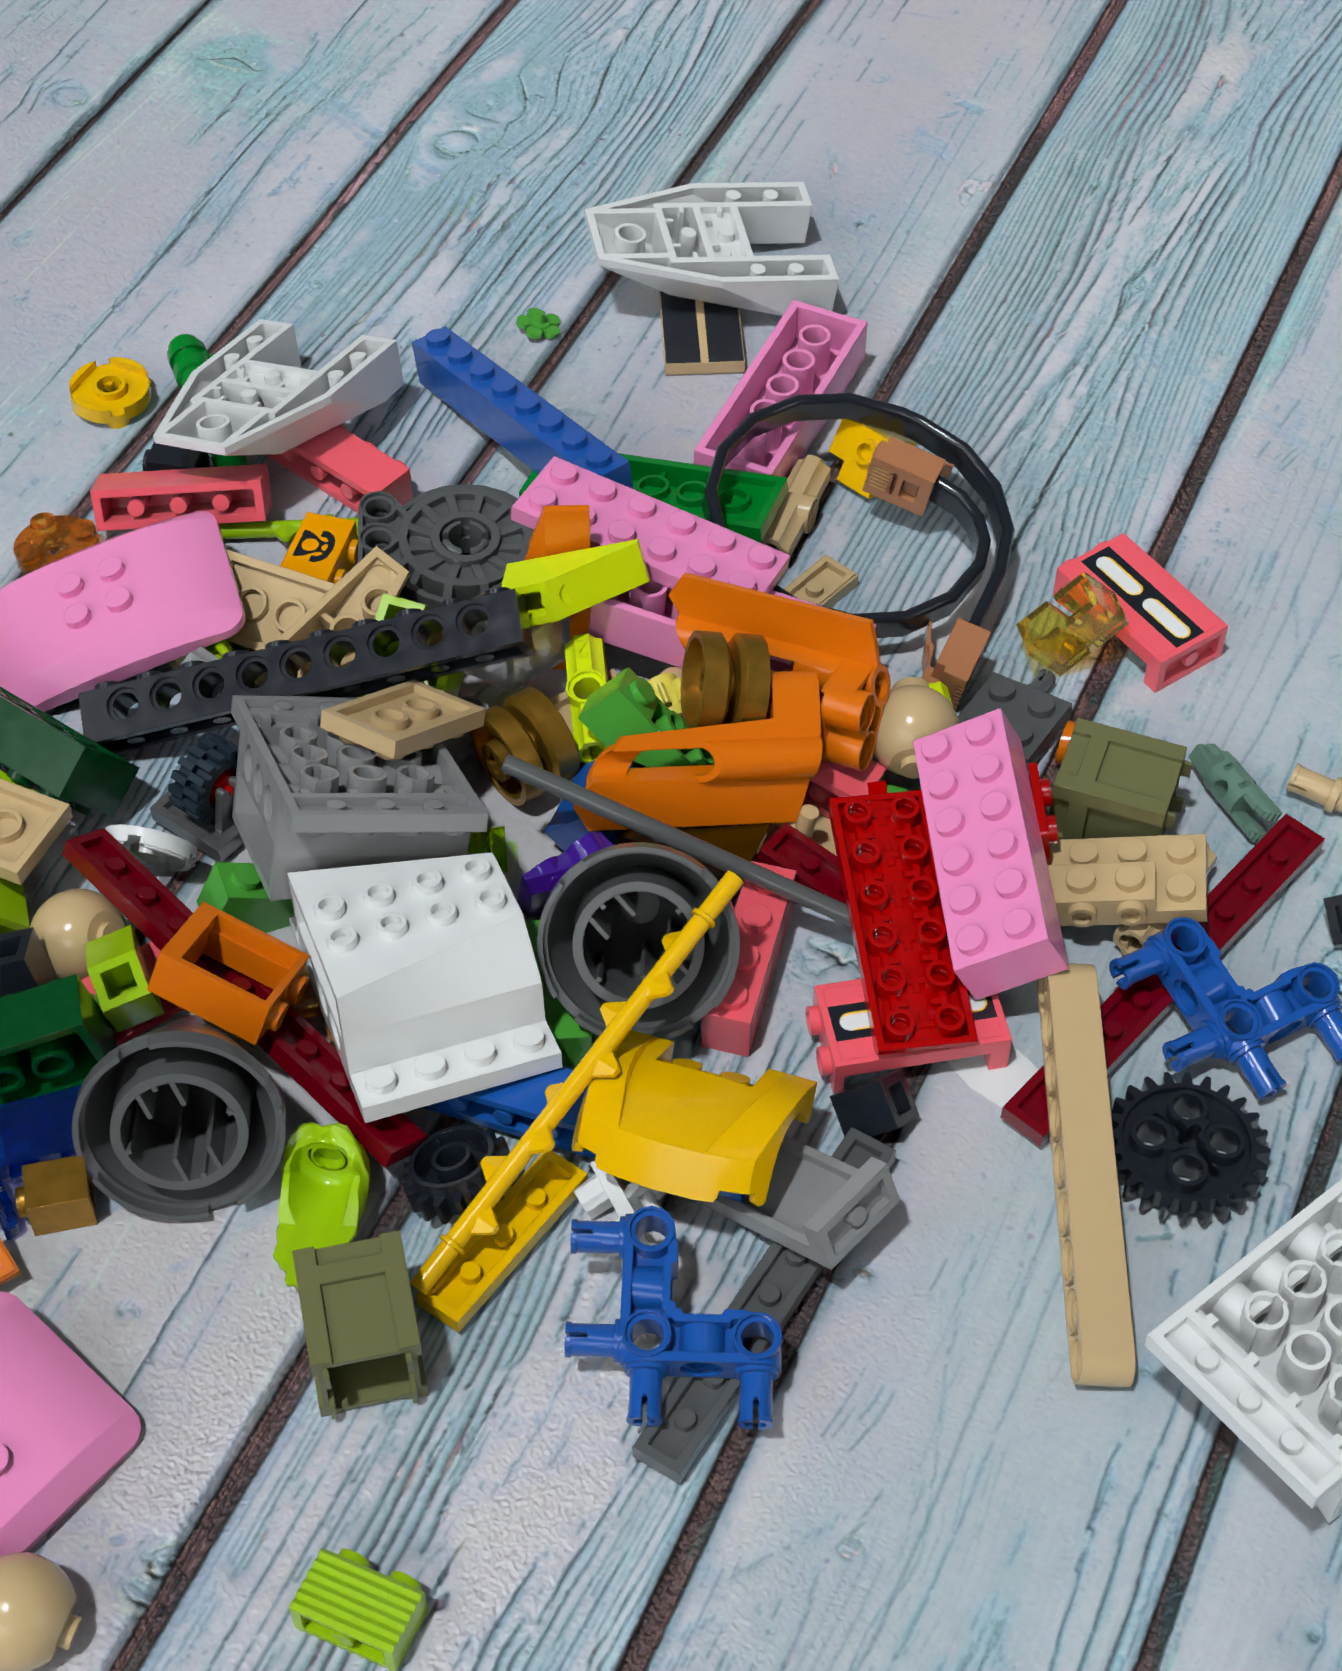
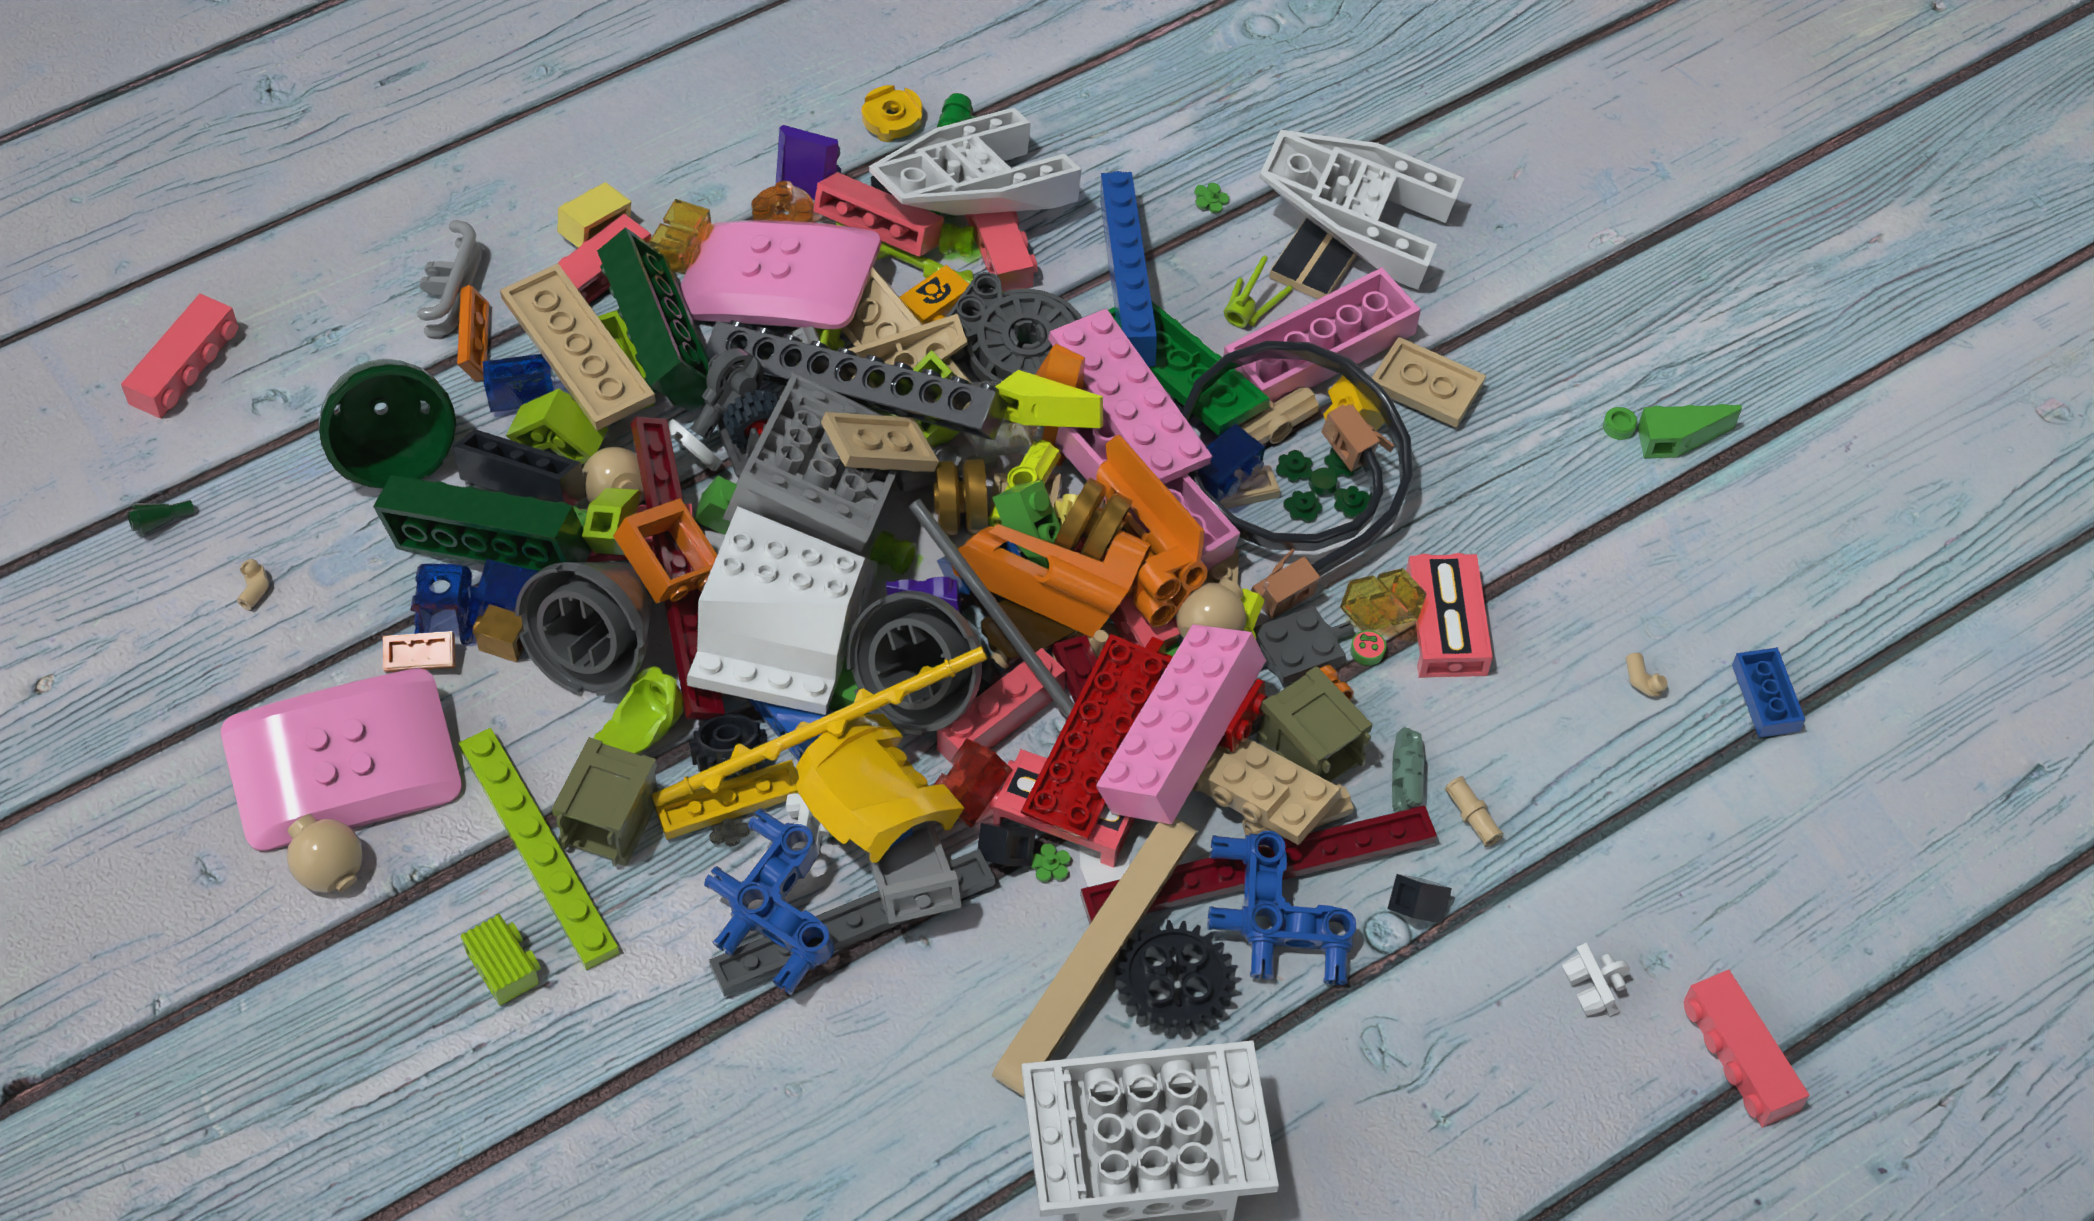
camera: 30 degrees right, 5 degrees up
(53, 475) = (806, 158): none -> dark purple slope
(151, 755) = (725, 384): none -> dark grey pin
(294, 486) = (957, 240): none -> clear neon green wheel
(301, 1438) = (539, 849): none -> lime plate
(531, 1276) = (729, 831): none -> clear smoke plant
(667, 416) = (1241, 307): none -> lime plant
(789, 1040) = (974, 779): none -> clear red brick
(807, 557) = (1233, 460): none -> clear blue brick
(893, 545) = (1321, 482): none -> dark green plant
(938, 1101) = (1049, 863): none -> bright green plant
(939, 391) = (1428, 381): none -> tan plate
(1082, 687) = (1368, 647): none -> tile
(1138, 349) = (1620, 423): none -> bright green tile
(1201, 327) = (1679, 429): none -> bright green slope

